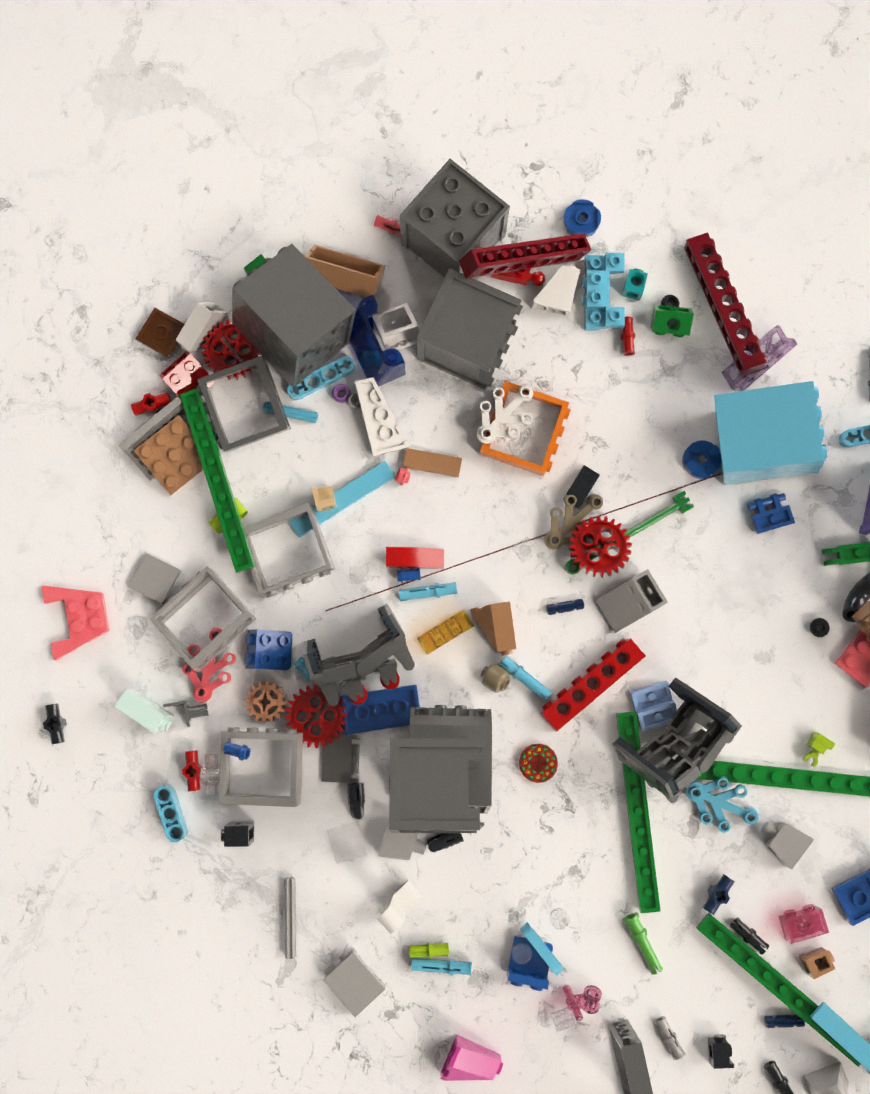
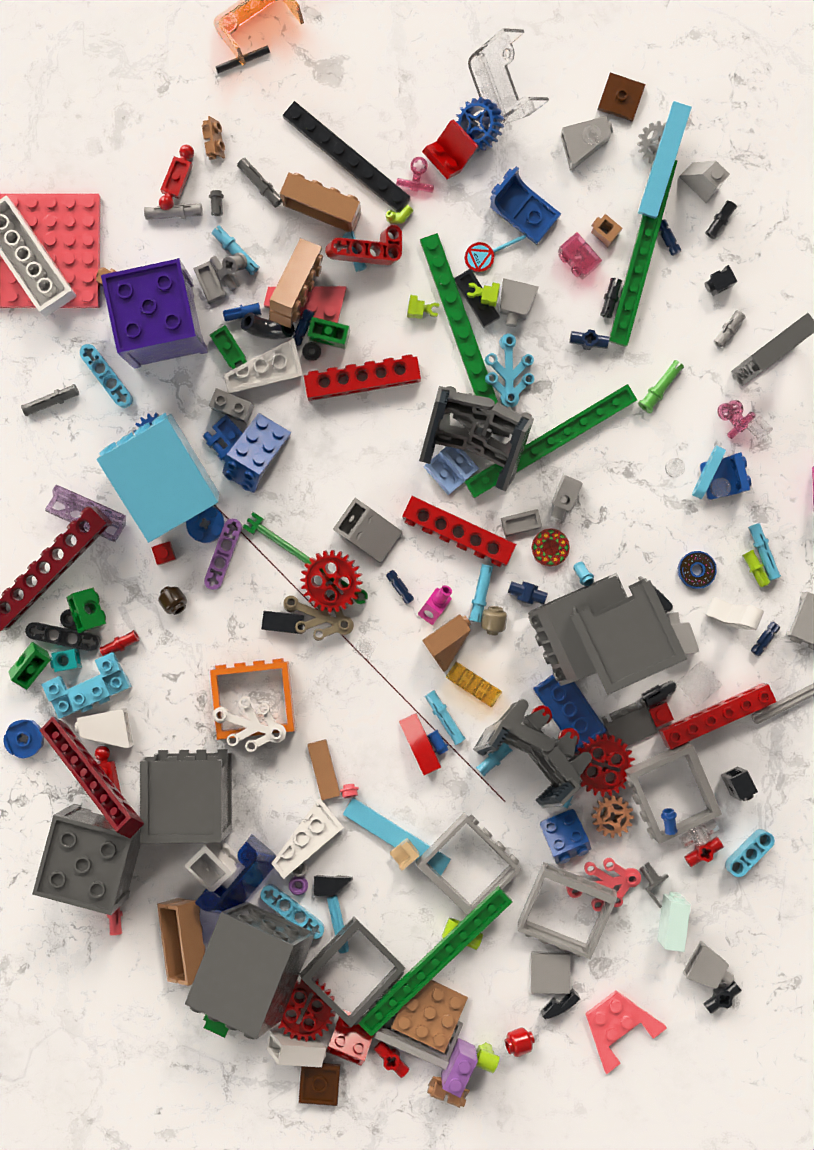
camera: 115 degrees left, 5 degrees up
(87, 723) = (707, 967): none -> light grey torso
(105, 434) = (436, 1091): none -> medium nougat hinge
(108, 521) = (519, 1042): none -> red head
(110, 485) = (486, 1058): none -> lime piece
(114, 457) = (460, 1067): none -> medium lavender brick
(122, 568) = (555, 1008): none -> black slope
(310, 845) = (717, 715): none -> red brick
(327, 421) = (329, 885): none -> black slope
(336, 792) = (661, 714): none -> red plate
(359, 926) = (765, 638): none -> dark blue axle
(369, 618) = (494, 759): none -> medium azure pin
(457, 904) = (708, 569): none -> tile
(501, 782) = (585, 576): none -> medium azure pin
(506, 721) = (527, 592): none -> dark blue axle
(535, 632) = (436, 603): none -> dark pink bracket
(573, 747) = (521, 522): none -> light grey tile
(588, 806) = (569, 487): none -> light grey torso
(644, 250) = (29, 665): none -> green brick
(646, 398) = (172, 600): none -> dark brown head
(656, 291) = (63, 636): none -> black beam
(669, 460) = (220, 553): none -> medium lavender beam
(691, 411) = (163, 553): none -> red plate
(749, 531) = (254, 452): none -> bracket
(761, 688) = (353, 386): none -> red brick
(801, 531) = (231, 405): none -> light grey brick
(804, 805) = (485, 313): none -> black plate
(804, 817) = (488, 293): none -> lime piece
(821, 583) = (270, 367): none -> white wing
(831, 650) = (328, 333): none -> green brick
(843, 829) = (481, 256): none -> piece
(846, 629) = (303, 326): none -> dark blue axle

